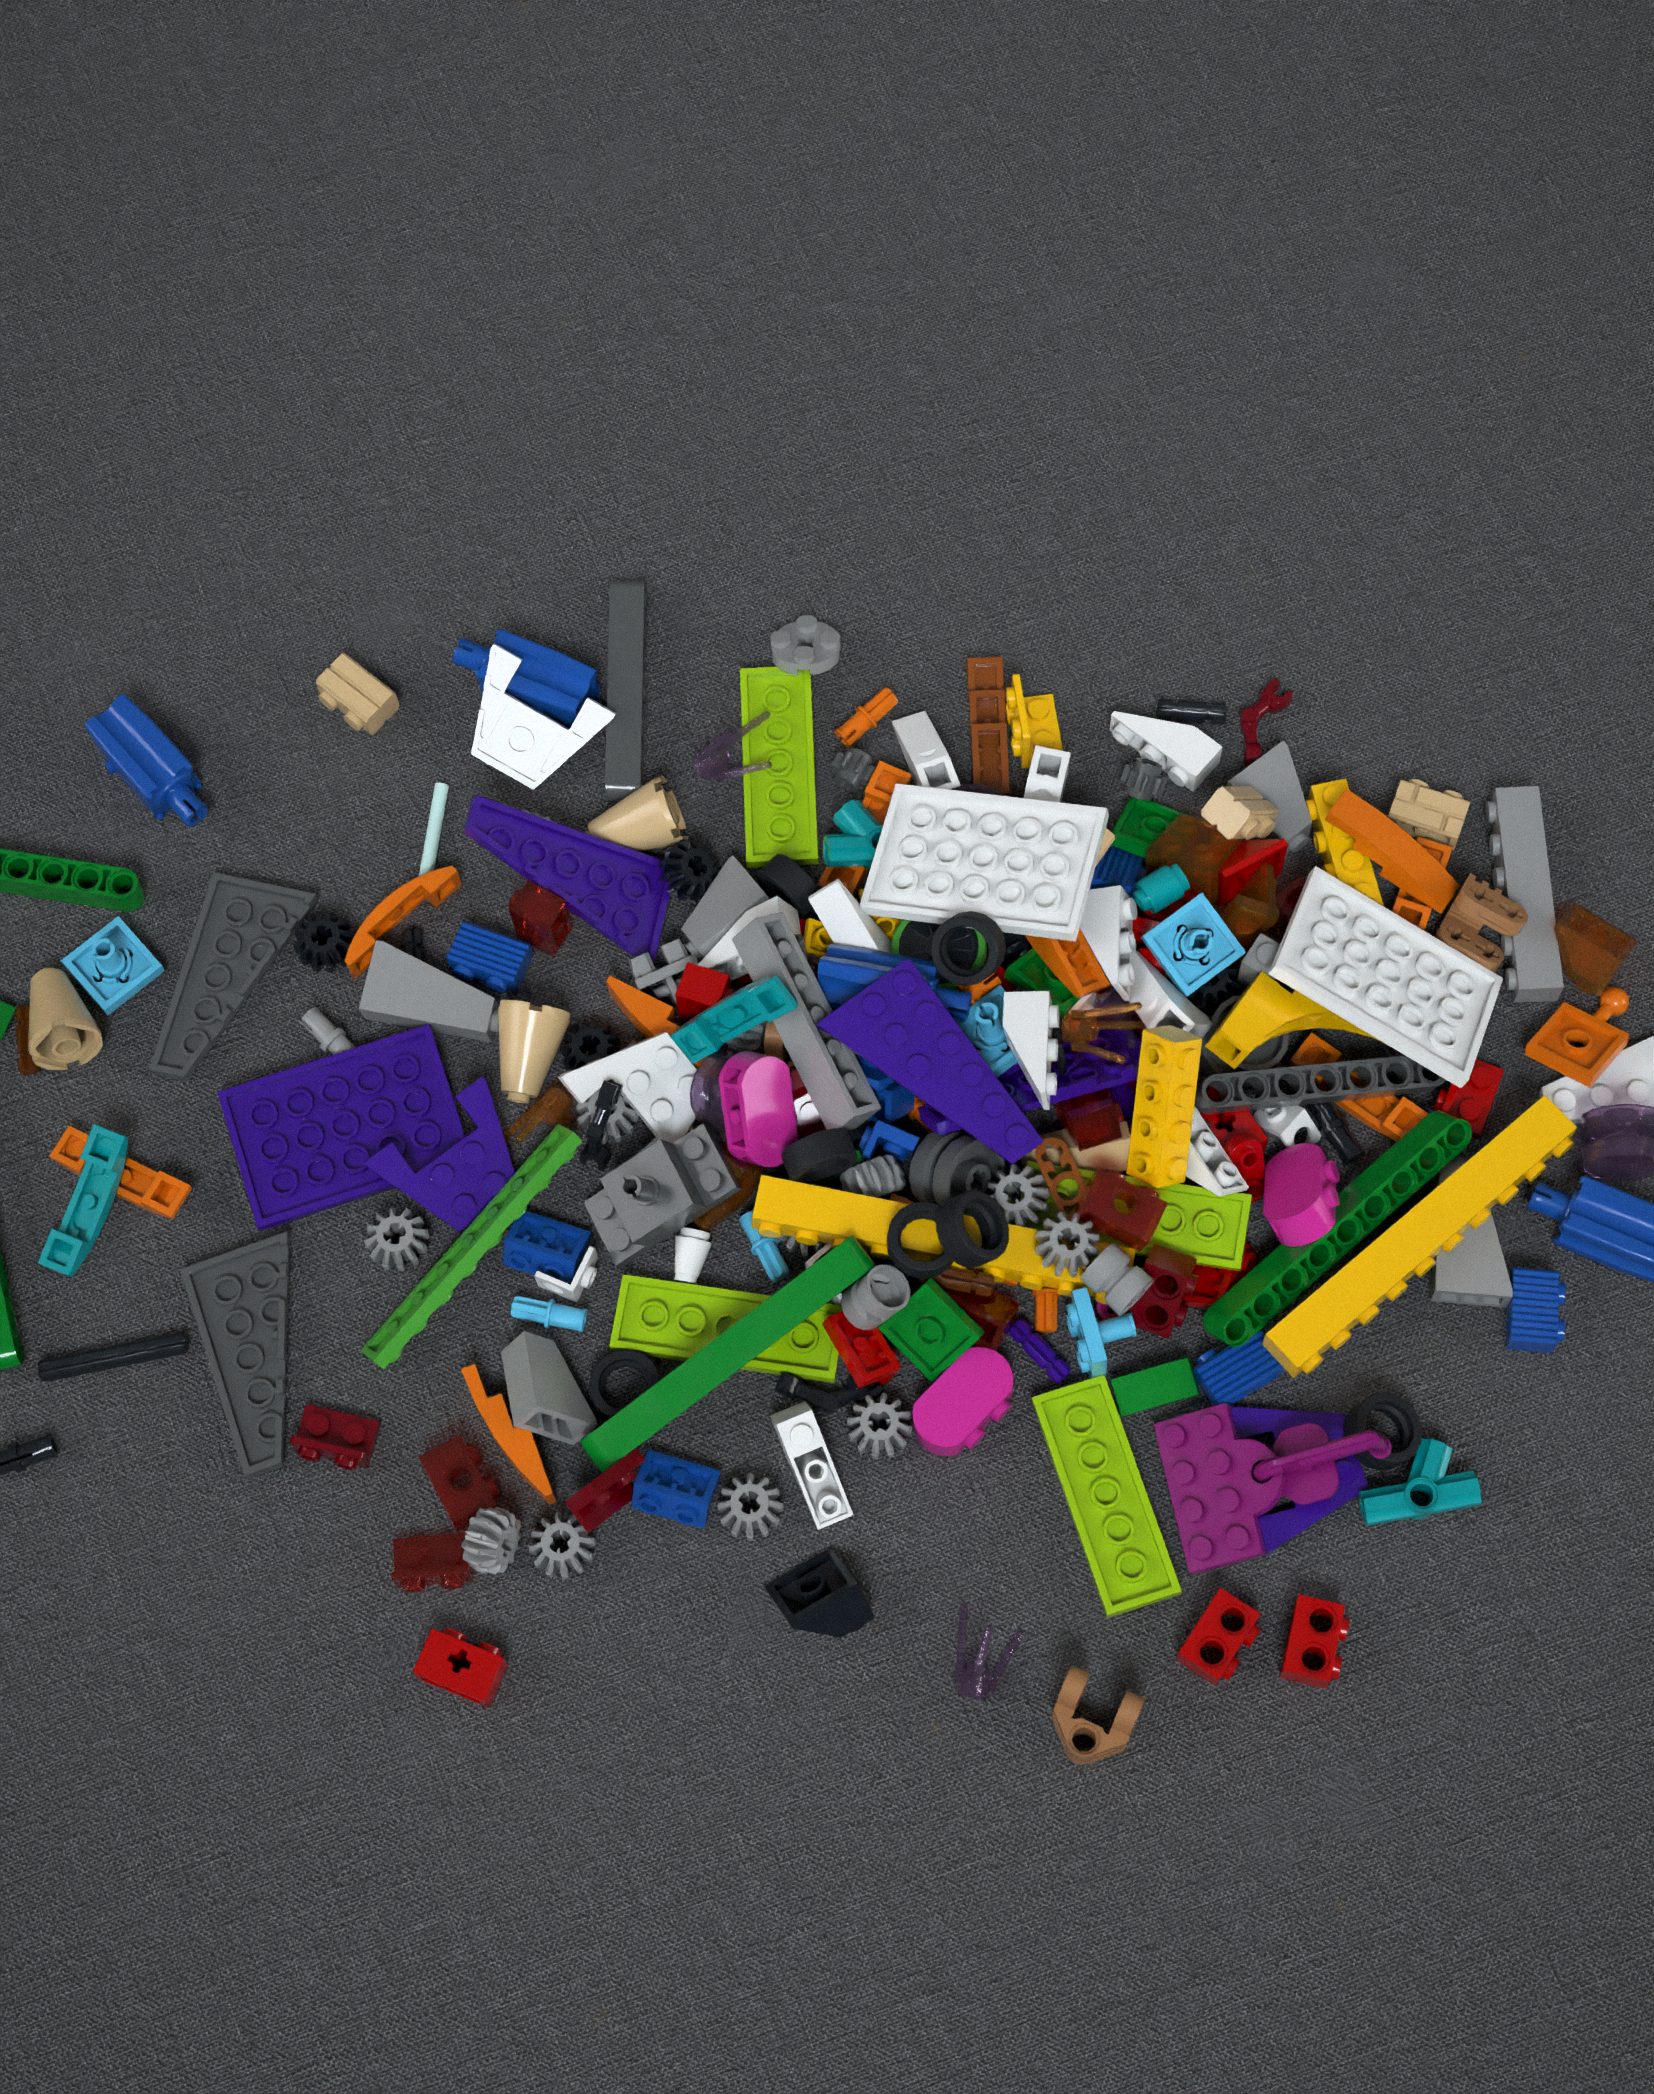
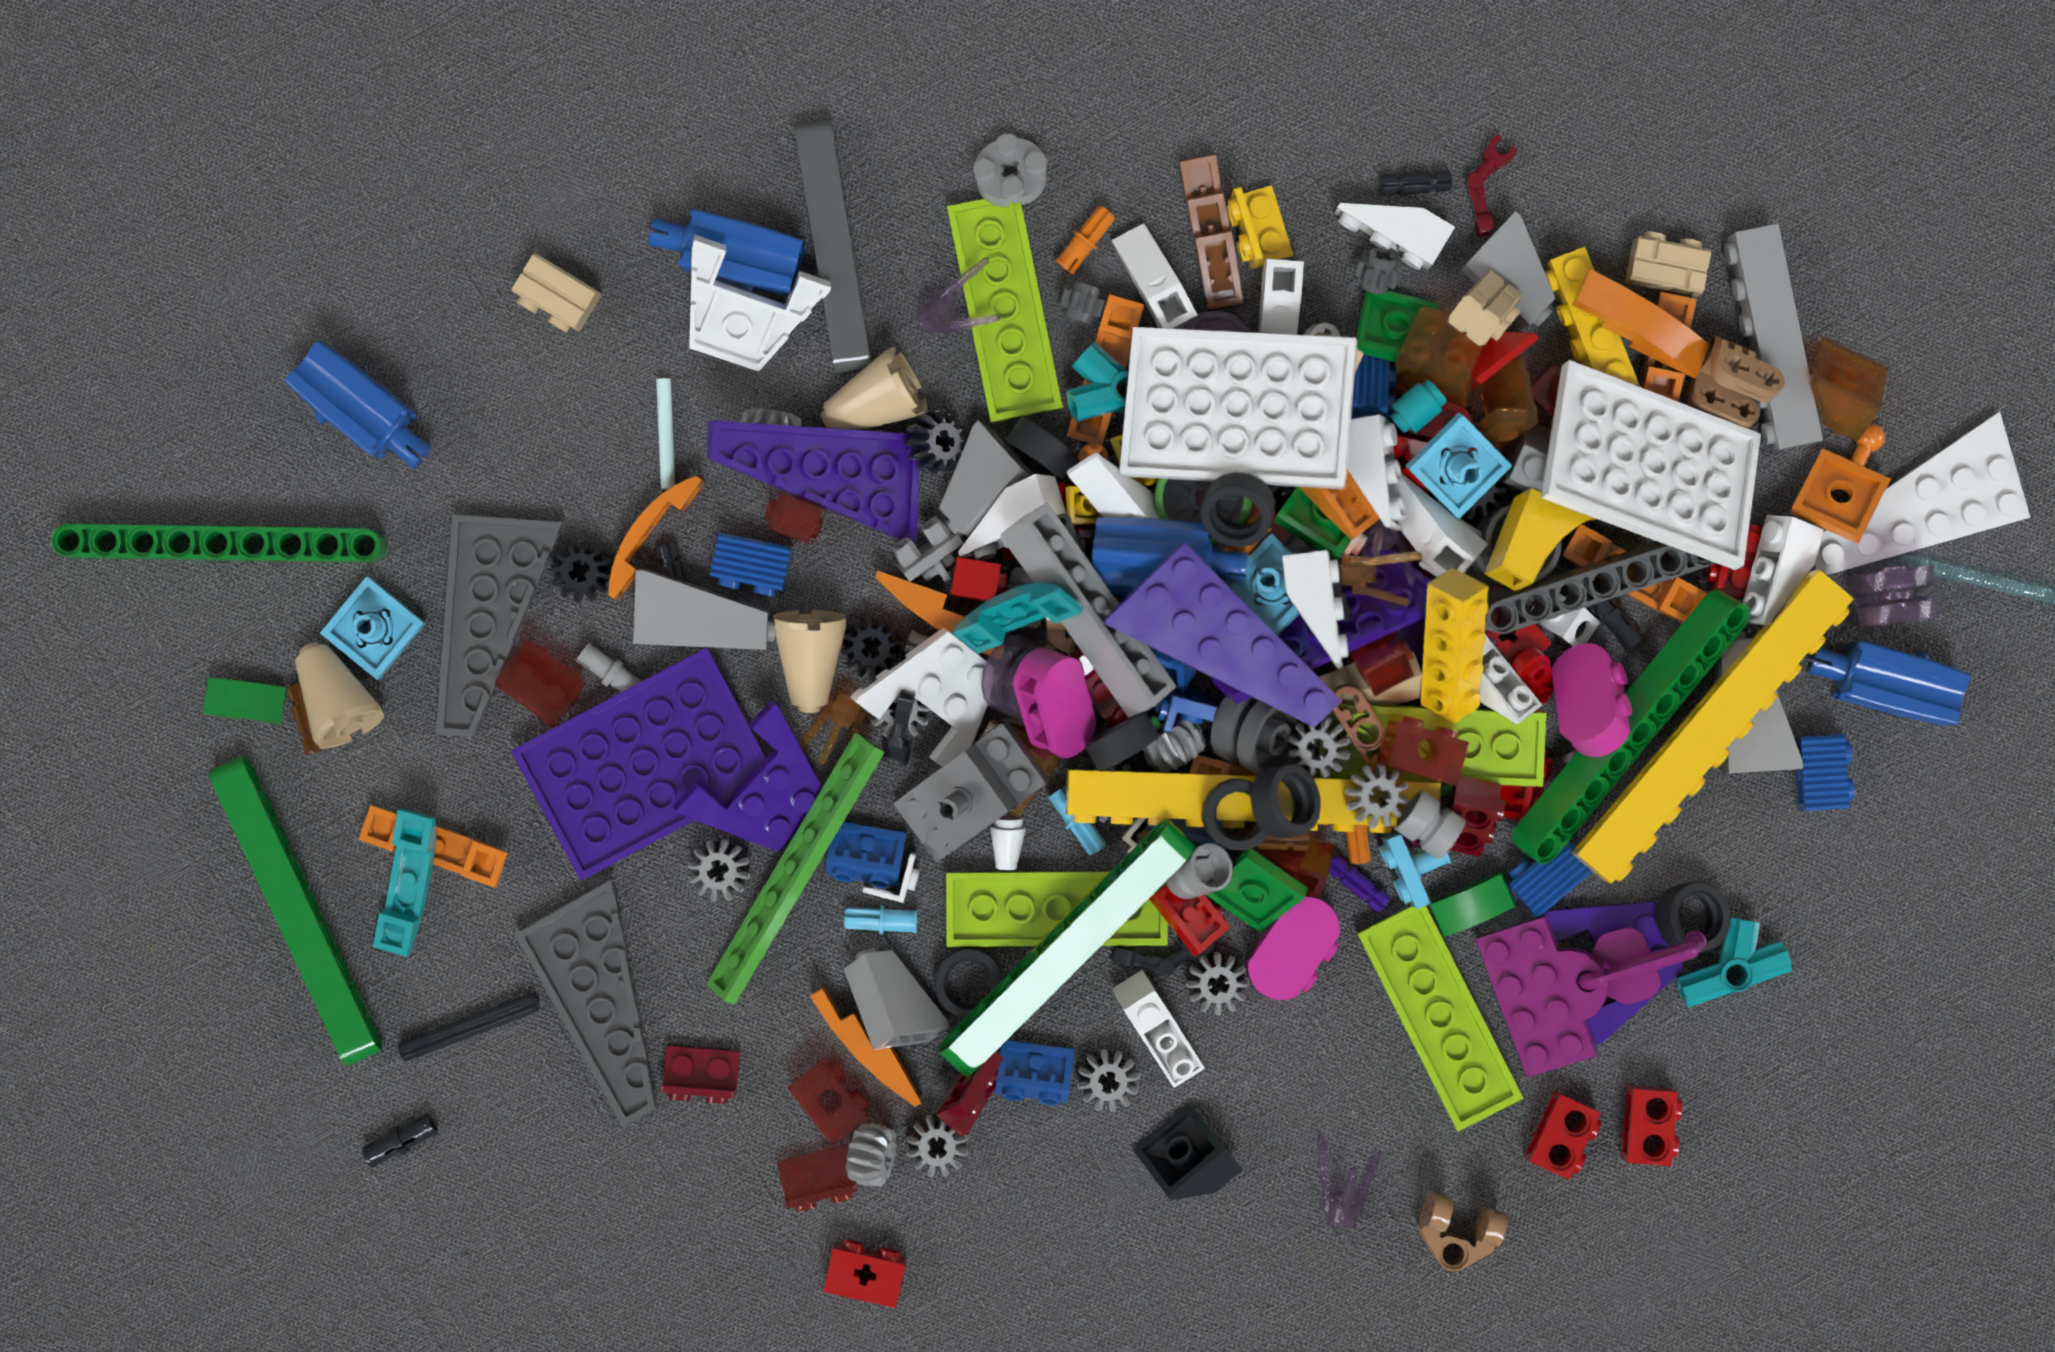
camera: 15 degrees left, 20 degrees up
(262, 1036) = (541, 683): none -> clear red bracket
(1514, 1087) = (1781, 563): none -> white slope

